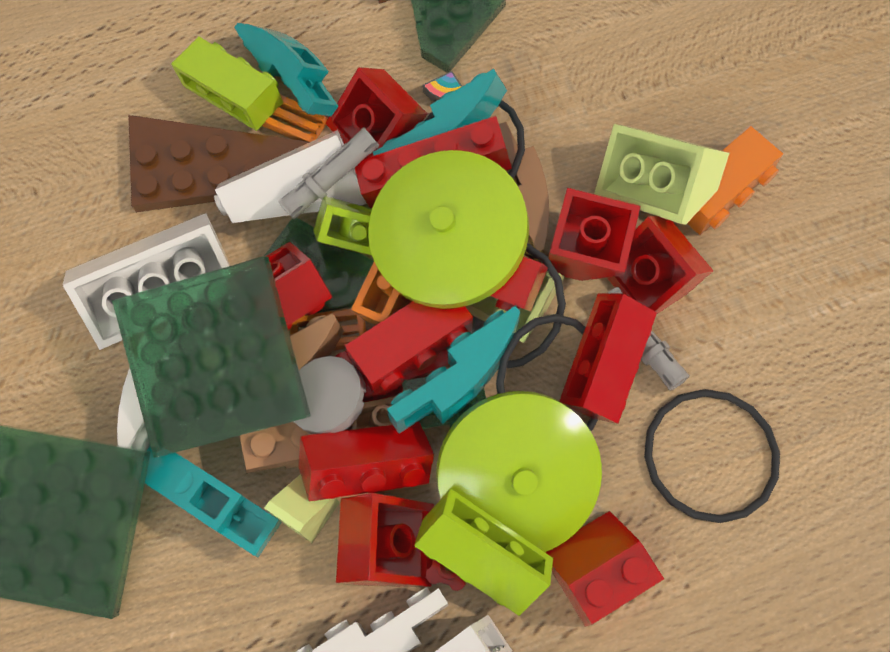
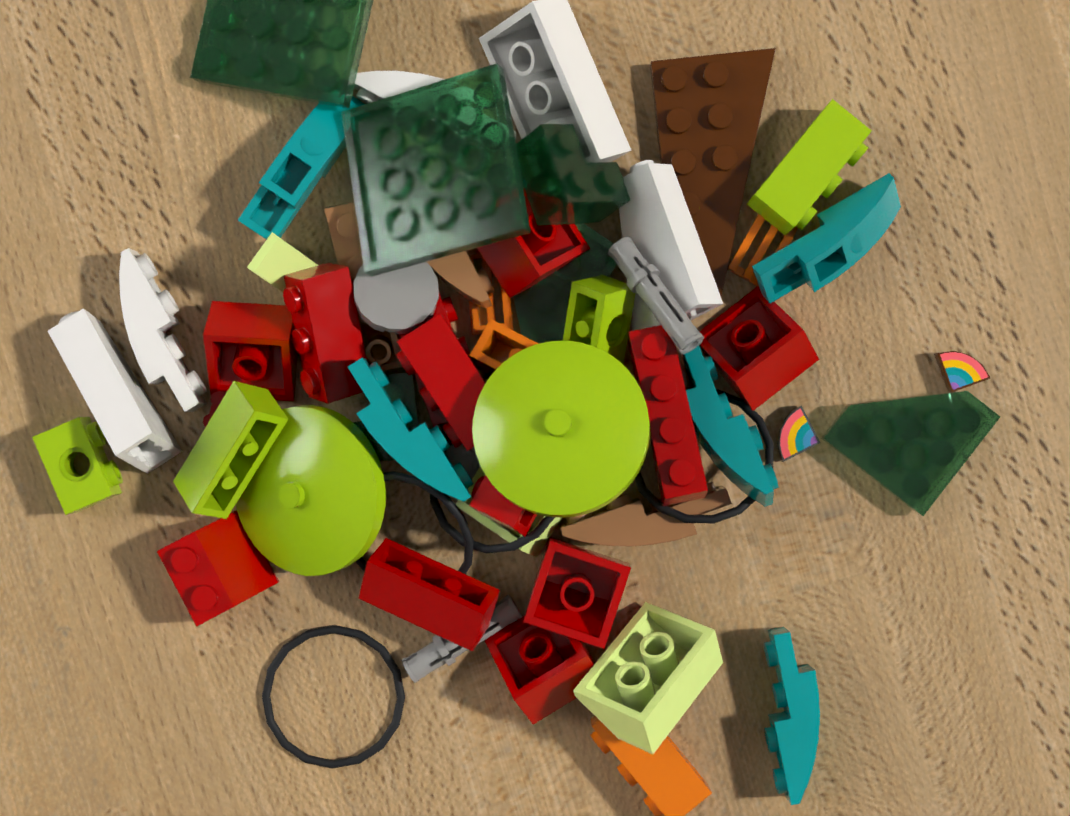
camera: 90 degrees right, 20 degrees up
(233, 241) = (562, 183): none -> clear green brick
(685, 75) = (796, 729): none -> teal slope

